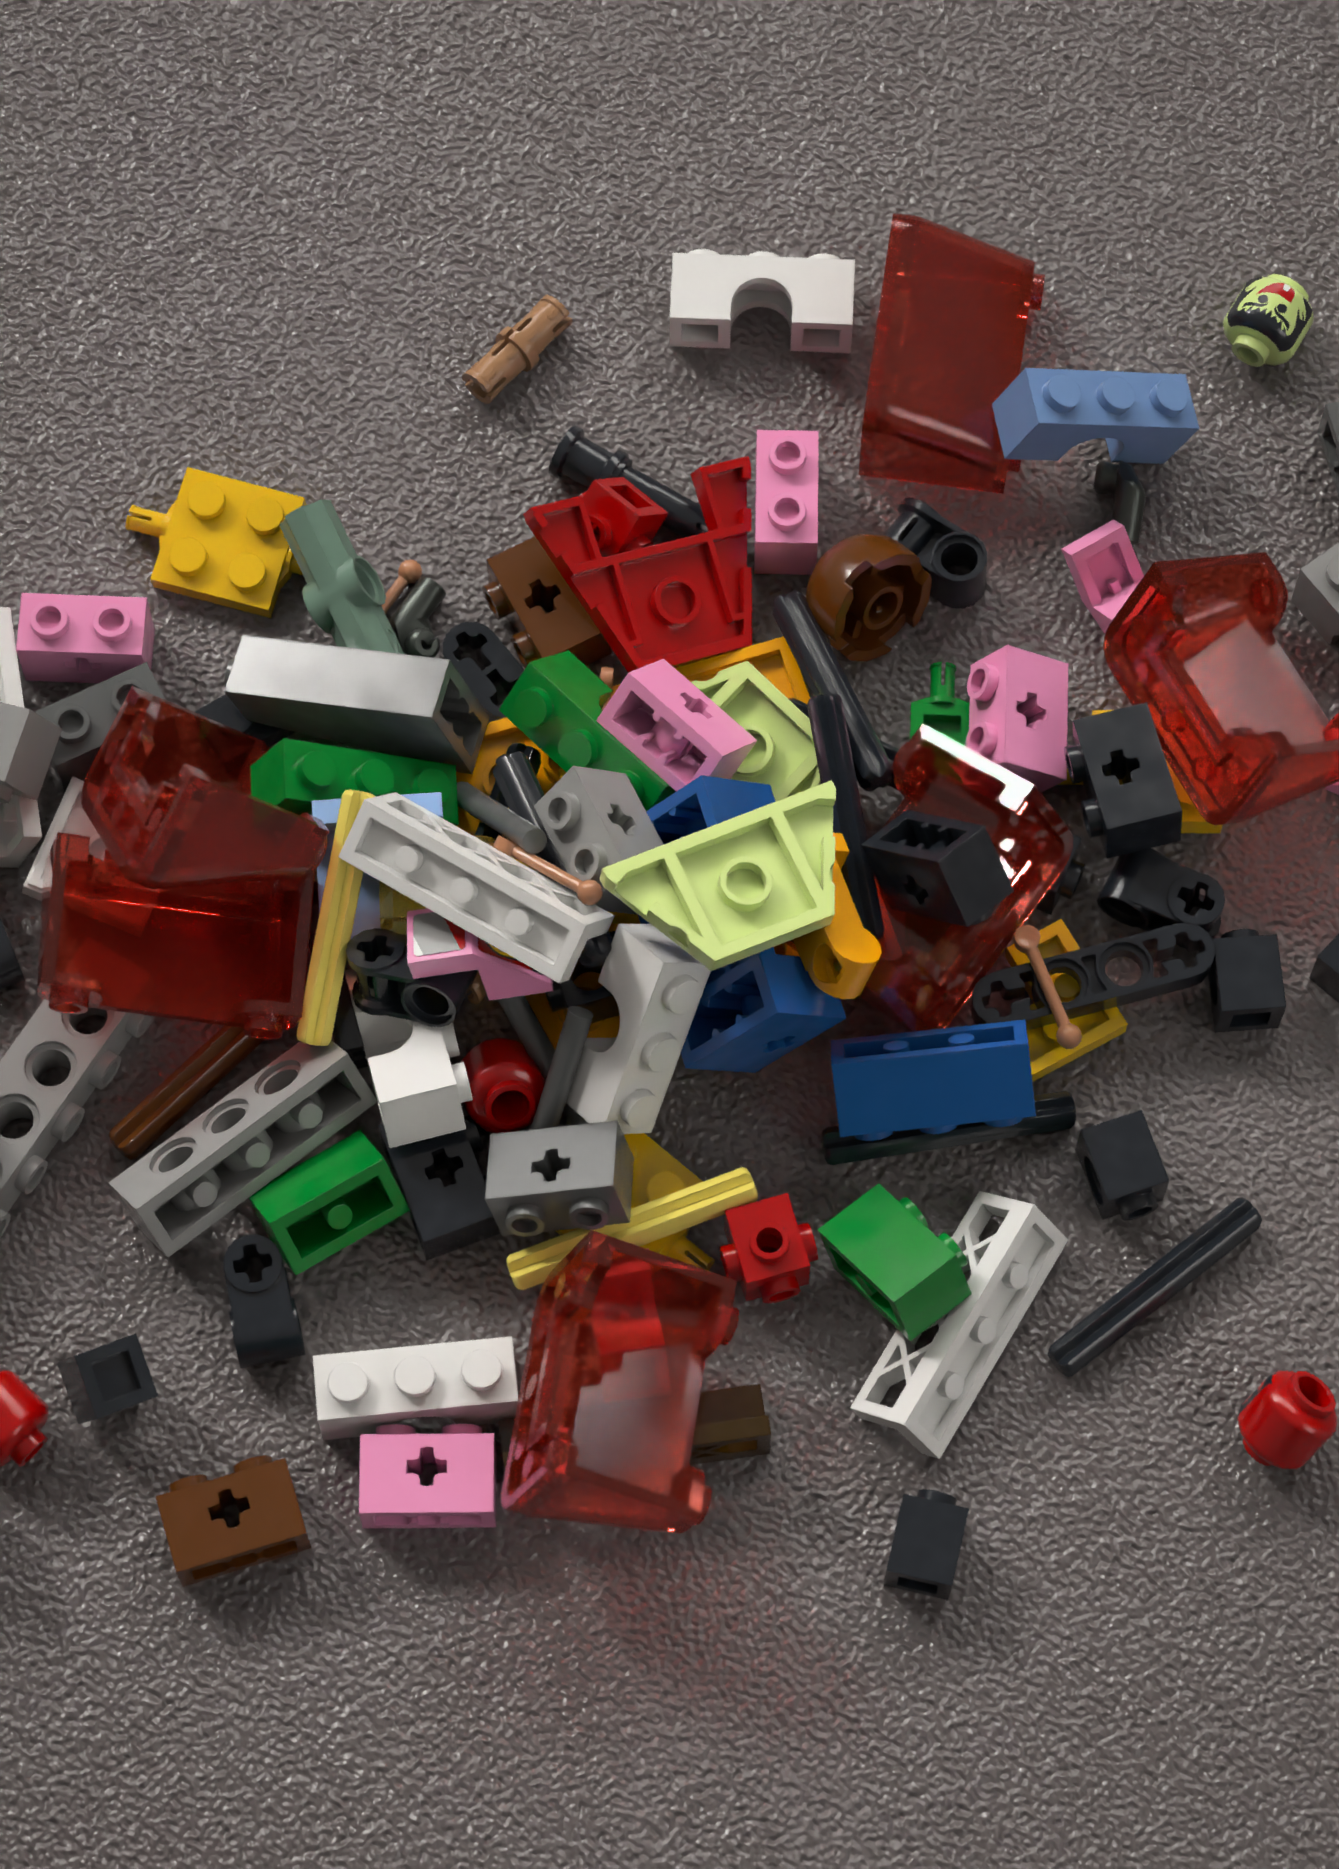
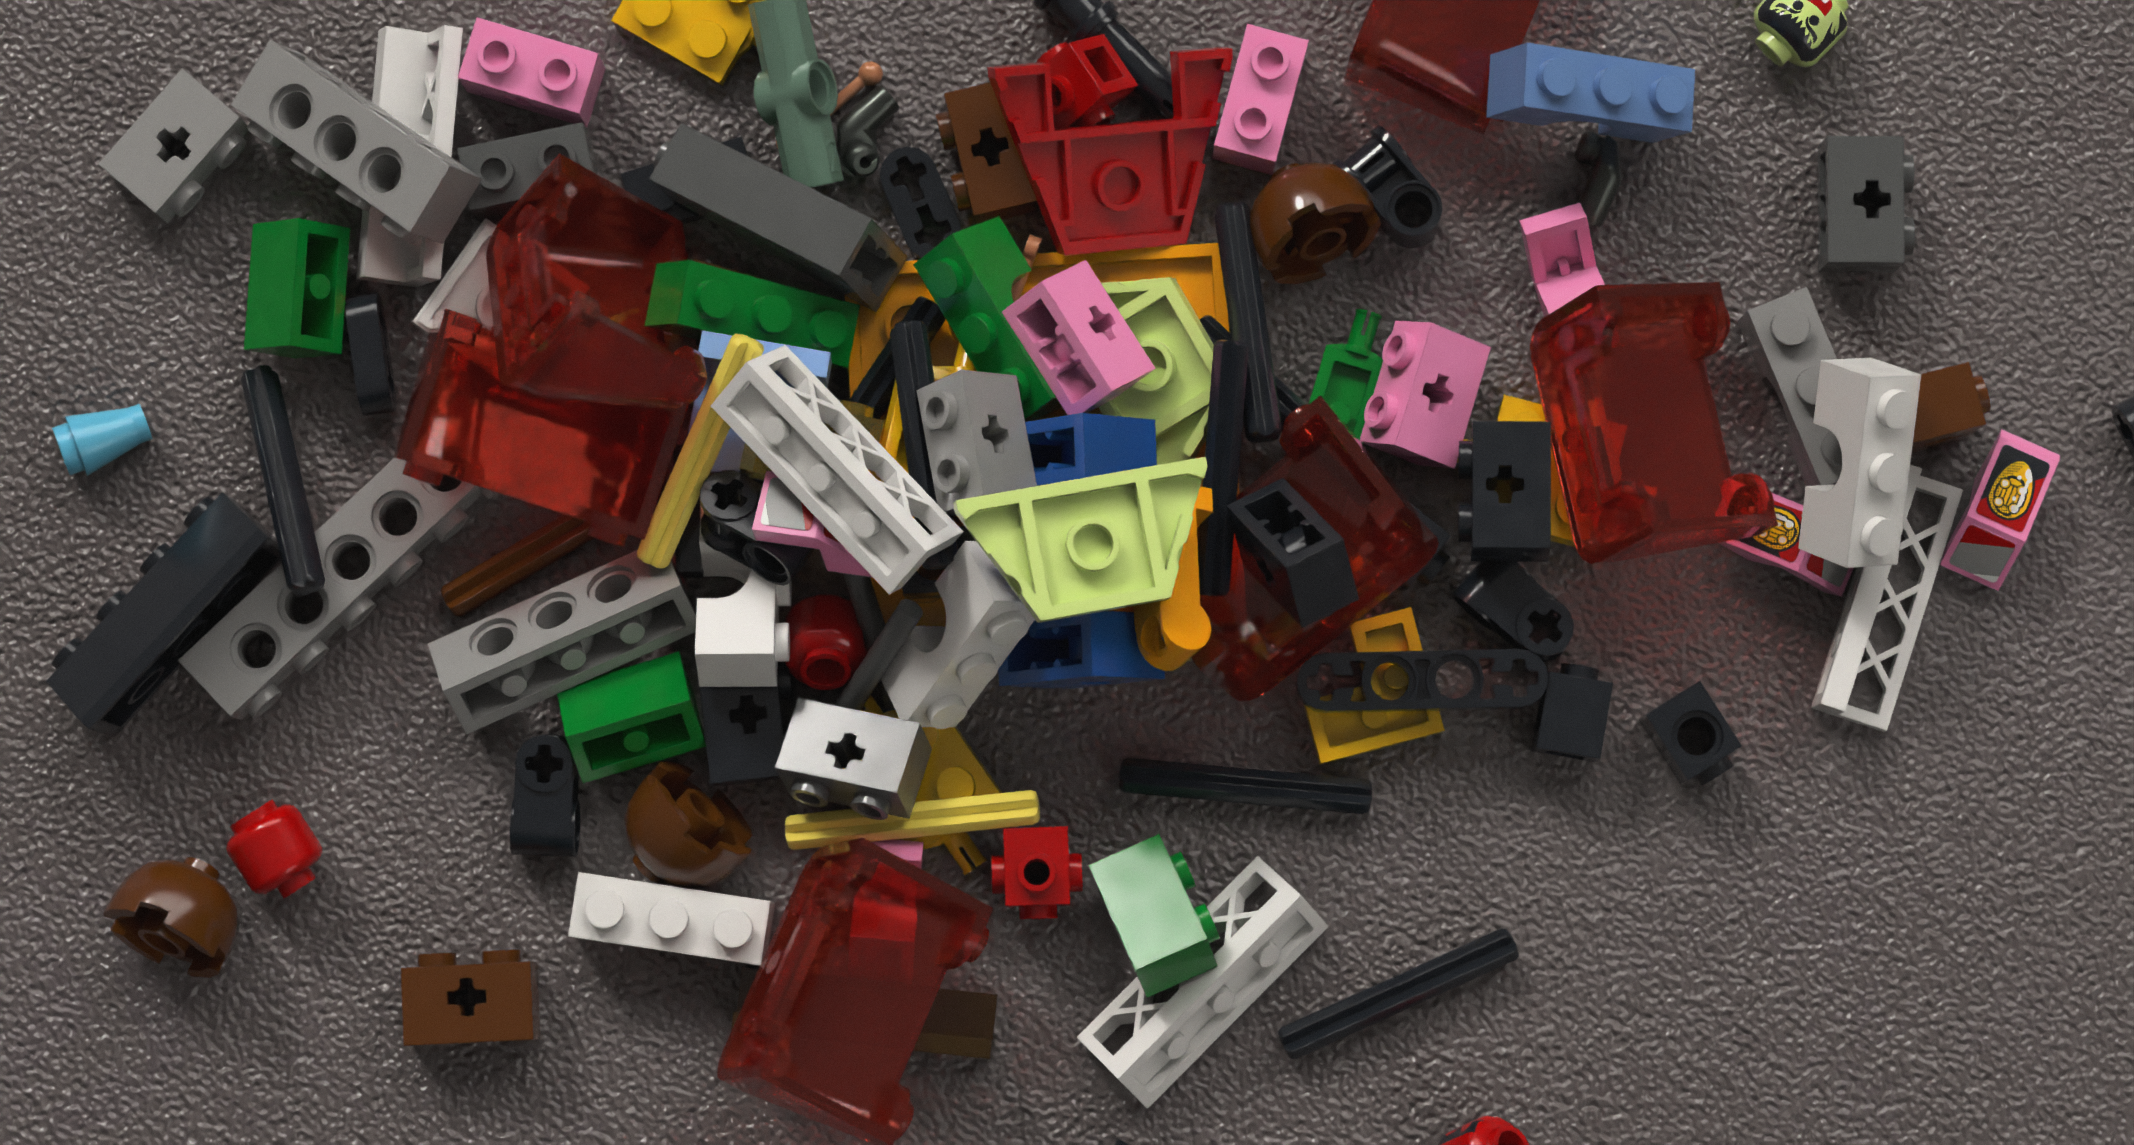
camera: 15 degrees right, 15 degrees up
(107, 1379) = (382, 839): black brick -> none
(405, 1299) = (683, 832): none -> reddish brown cylinder
(460, 1493) = (623, 1014): bright pink brick -> none
(500, 818) = (883, 385): dark grey bar -> none
(587, 891) = (941, 503): nougat hinge -> none
(932, 1080) = (1236, 748): blue brick -> none
(1027, 941) = (1367, 630): nougat hinge -> none
(1122, 1166) = (1399, 872): black brick -> none

